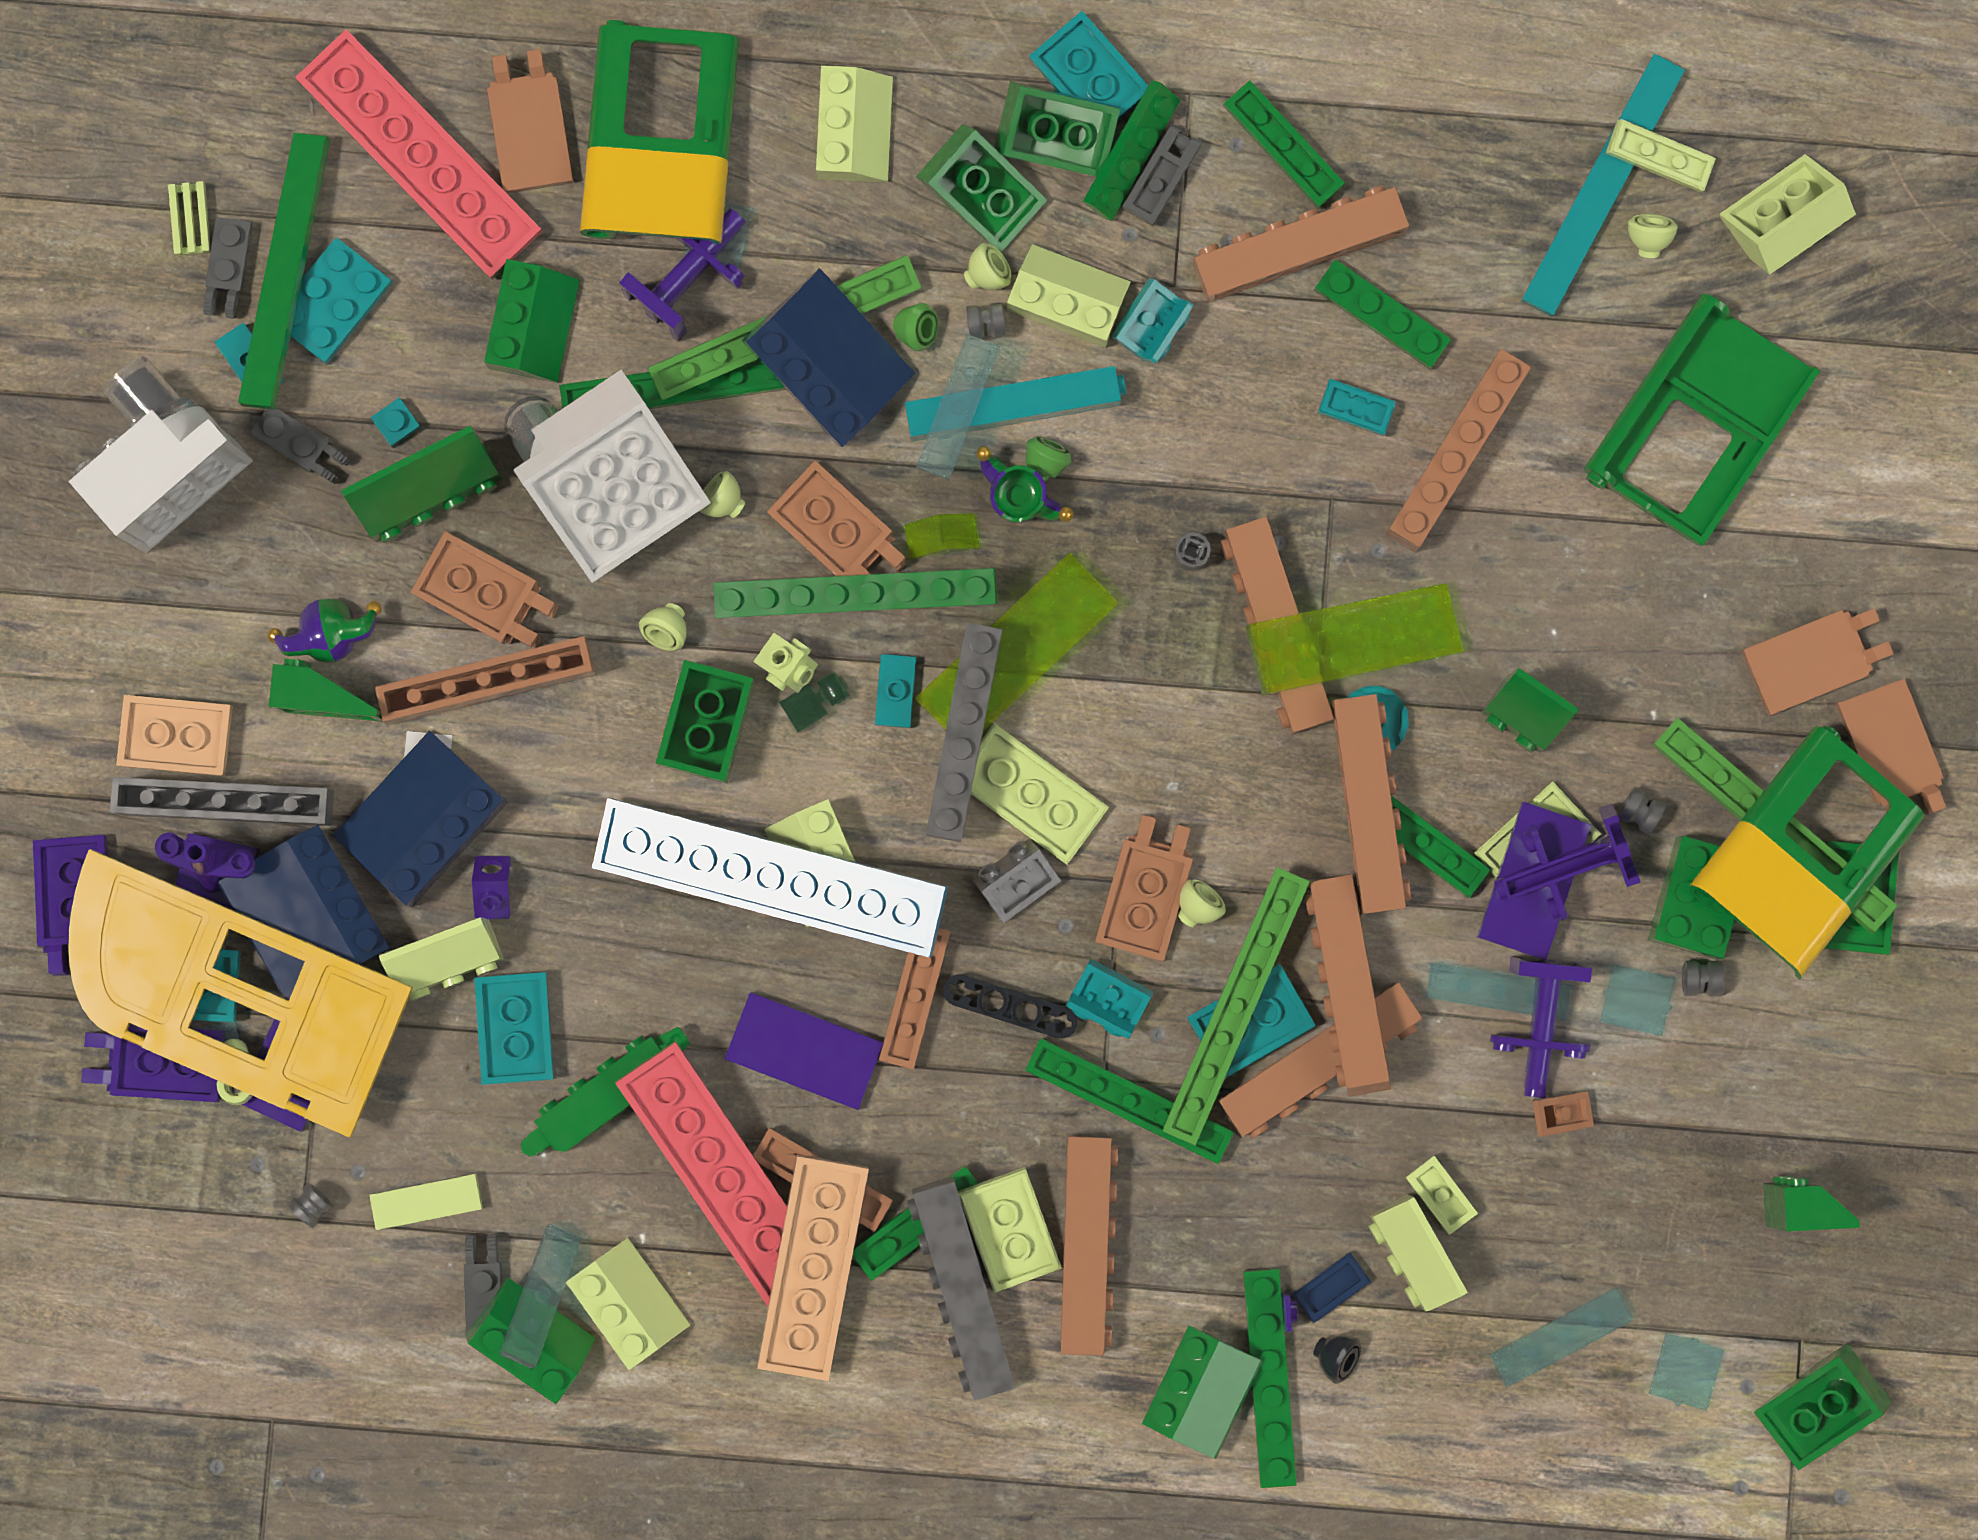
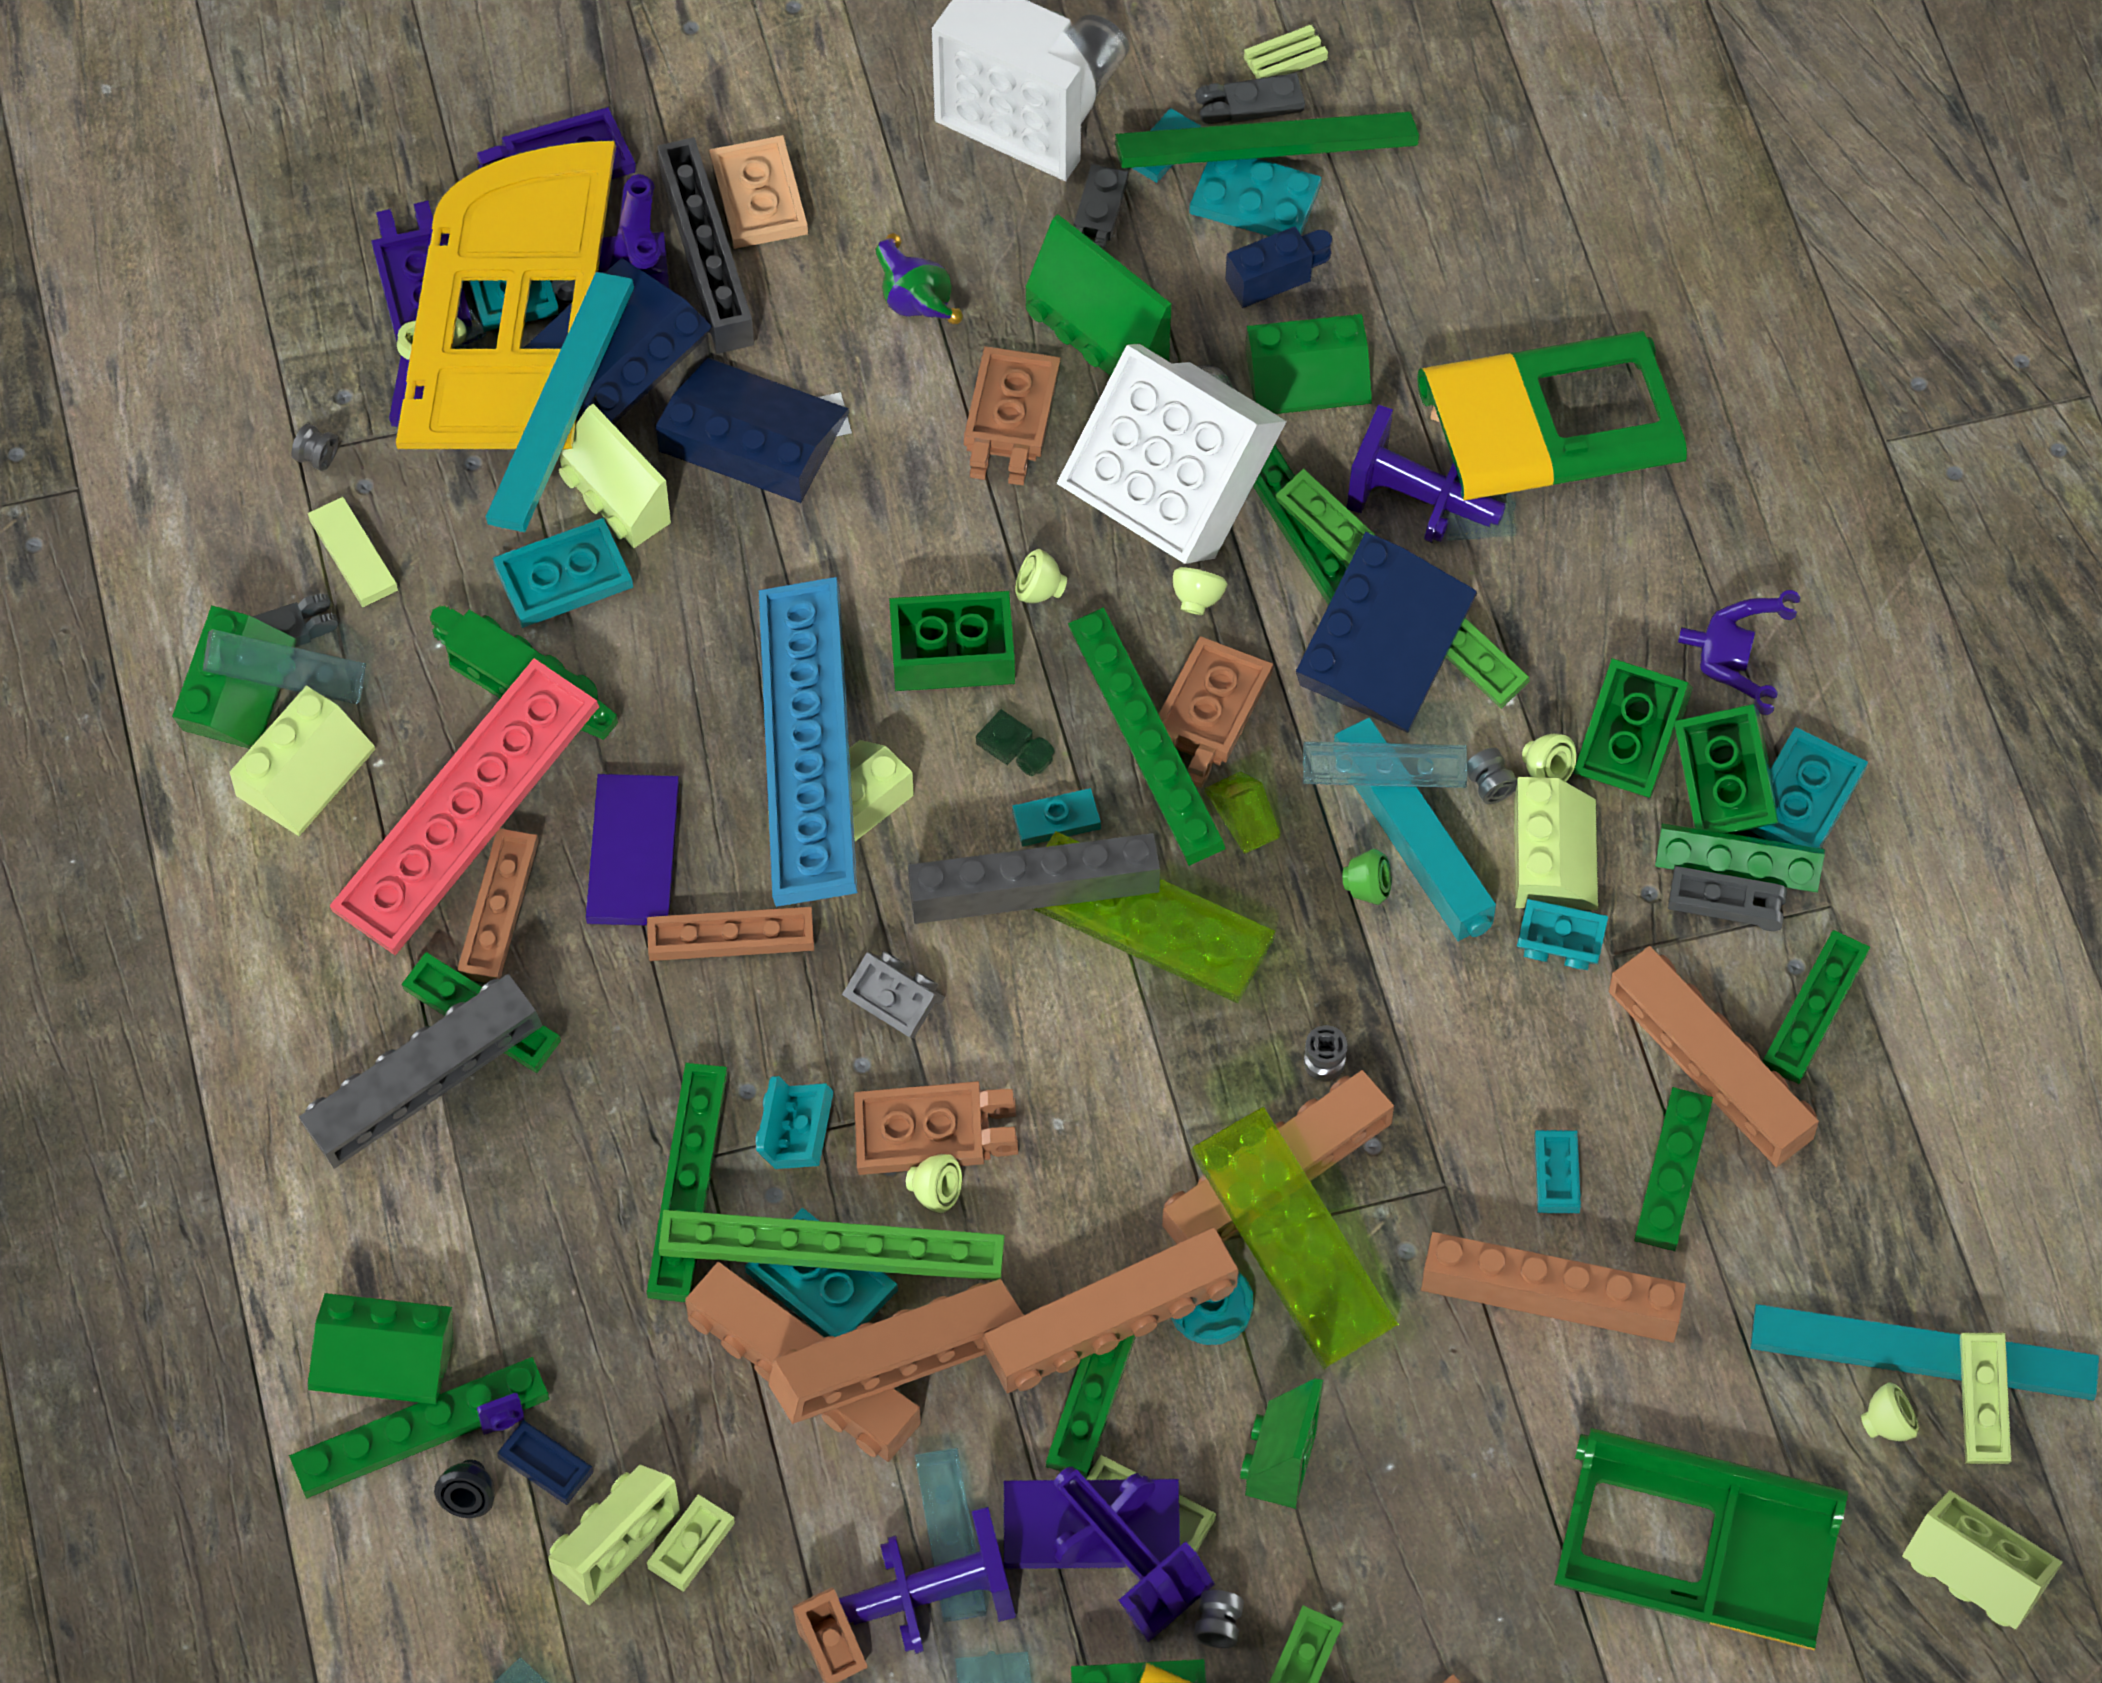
camera: 70 degrees right, 25 degrees down
(307, 692) = (845, 282): green slope -> none
(366, 983) = (559, 402): none -> teal tile
(395, 422) = (1160, 279): teal plate -> none
(417, 310) = (1275, 264): none -> dark blue brick
(418, 154) = (1437, 221): coral plate -> none
(485, 680) = (919, 433): nougat brick -> none
(491, 889) = (701, 505): dark purple bracket -> none
(529, 126) = (1512, 306): nougat tile -> none
(786, 663) = (1044, 697): yellowish green brick -> none
(812, 1267) = (396, 913): light nougat plate -> none
(854, 125) = (1644, 588): yellowish green slope -> none
(916, 326) = (1457, 712): bright green cone -> none
(932, 76) = (1729, 646): none -> dark purple piece
(1008, 1010) = (751, 1032): black beam -> none
(1009, 1229) = (502, 1104): yellowish green tile -> none
(1019, 491) = (1320, 858): green piece -> none
(1034, 795) = (994, 985): yellowish green tile -> none
(1086, 1245) = (510, 1186): nougat brick -> none

